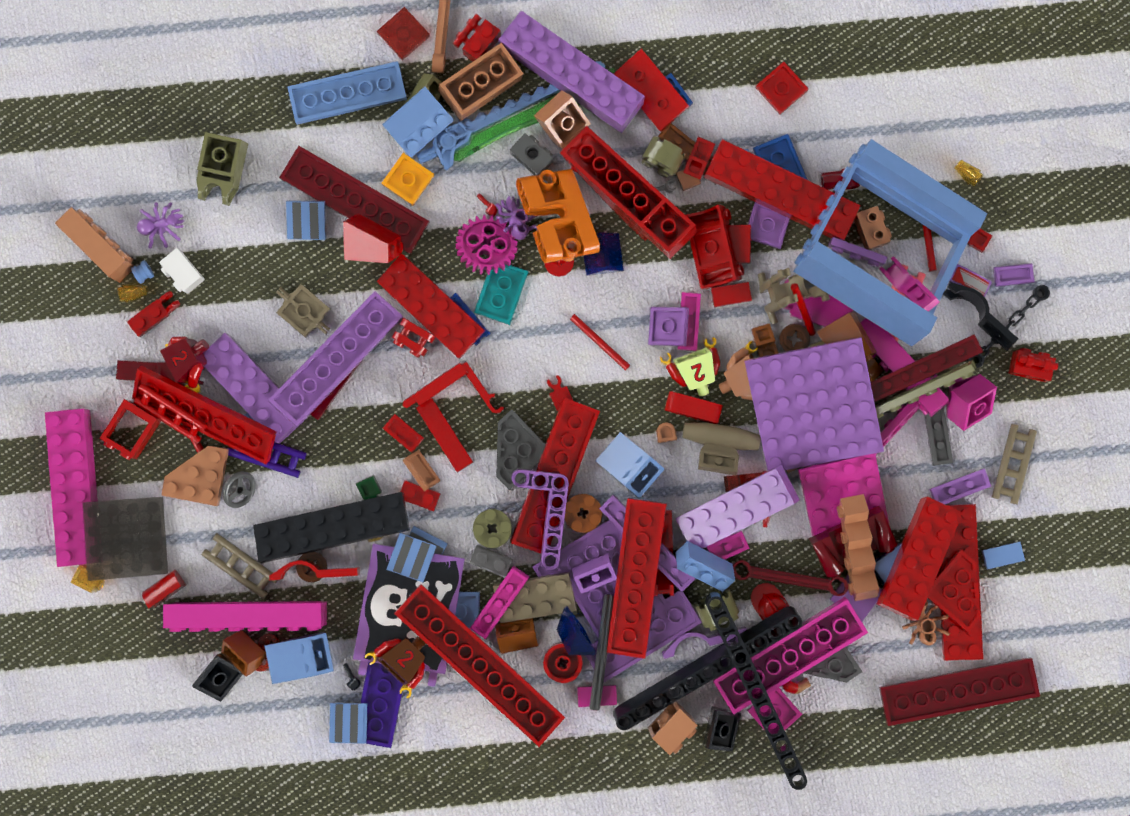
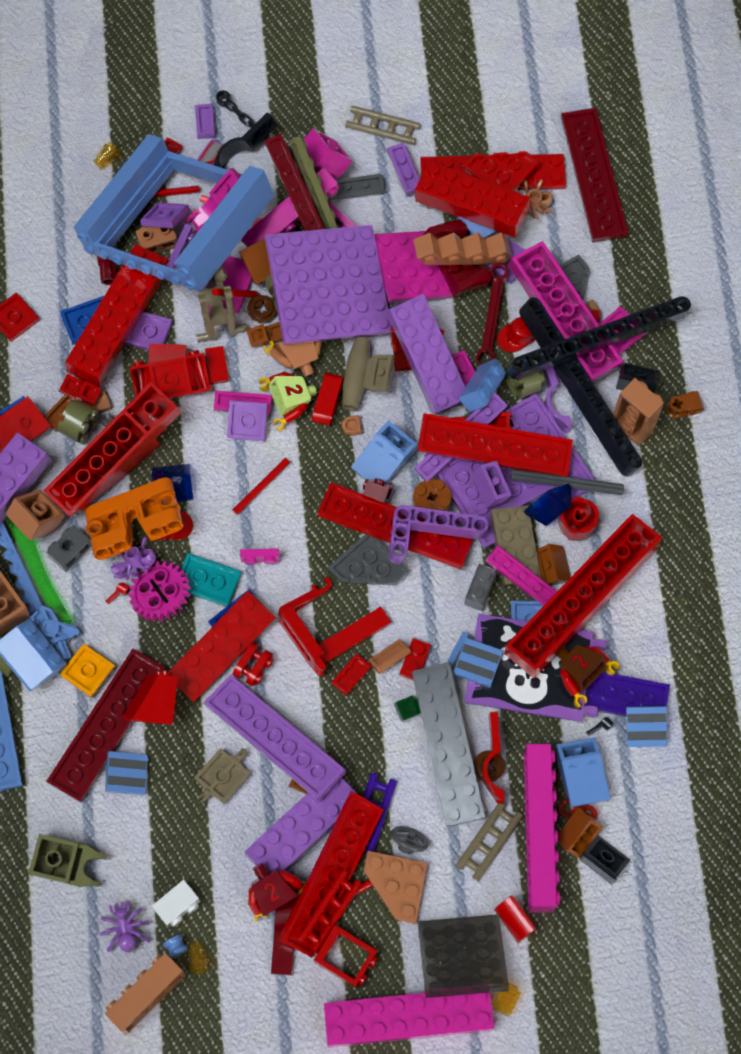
camera: 90 degrees left, 15 degrees down
(152, 314) = (222, 938): red hinge -> none
(481, 528) = (445, 575): olive brick -> none
(523, 333) = (251, 556): none -> dark pink plate
(559, 393) = (313, 524): red plate -> none
(592, 458) = (378, 490): none -> dark red brick
(609, 695) = (610, 501): dark pink tile -> none
(691, 780) = (687, 403): none -> dark orange piece
(896, 235) = (165, 215): none -> medium lavender tile
(1003, 555) = (467, 136): medium blue tile -> none
(1032, 366) = (291, 105): red brick -> none

